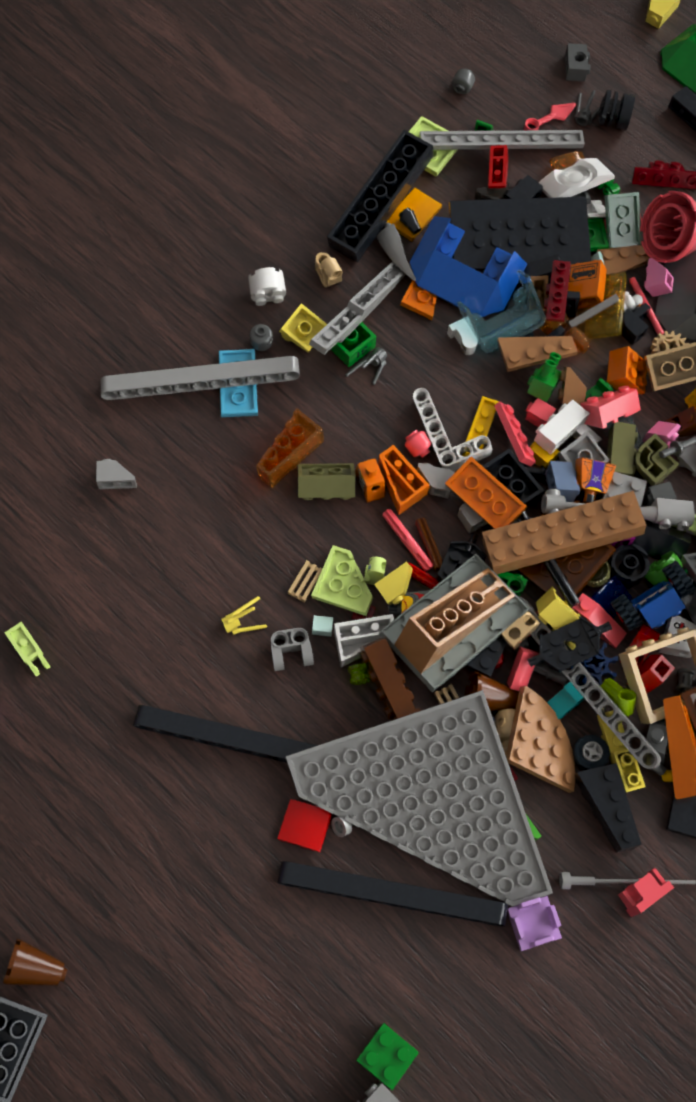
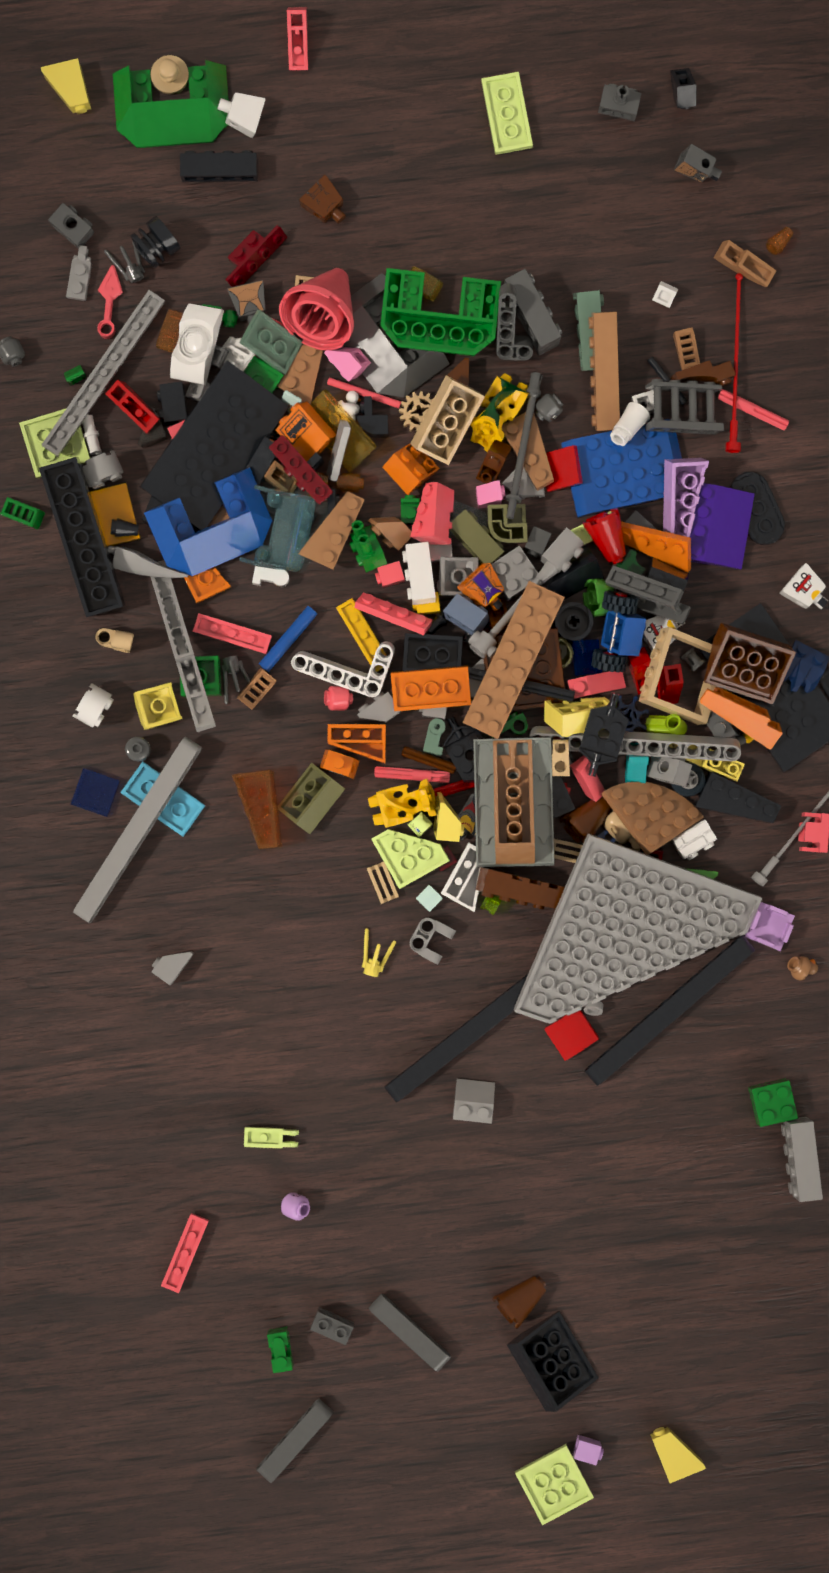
camera: 50 degrees left, 20 degrees up
(183, 787) = (474, 1101): none -> light grey slope
(204, 335) = (95, 792): none -> clear blue tile
(363, 162) = (33, 518): none -> green slope
(370, 539) = (391, 806): none -> yellow hips
(384, 392) = (271, 681): none -> medium nougat slope
(400, 342) = (232, 633): none -> coral plate
(430, 380) = (288, 638): none -> blue piece
(437, 180) = (101, 469): none -> light grey brick
(449, 532) = (435, 730): none -> sand green leg
(454, 163) = (91, 435): none -> white pin
(524, 981) = (801, 967): none -> medium nougat animal
(548, 797) = (694, 839): none -> white brick
(550, 89) = (79, 275): none -> light grey hinge
(586, 727) = (669, 770): none -> light grey brick
(637, 184) = (248, 299): none -> torso

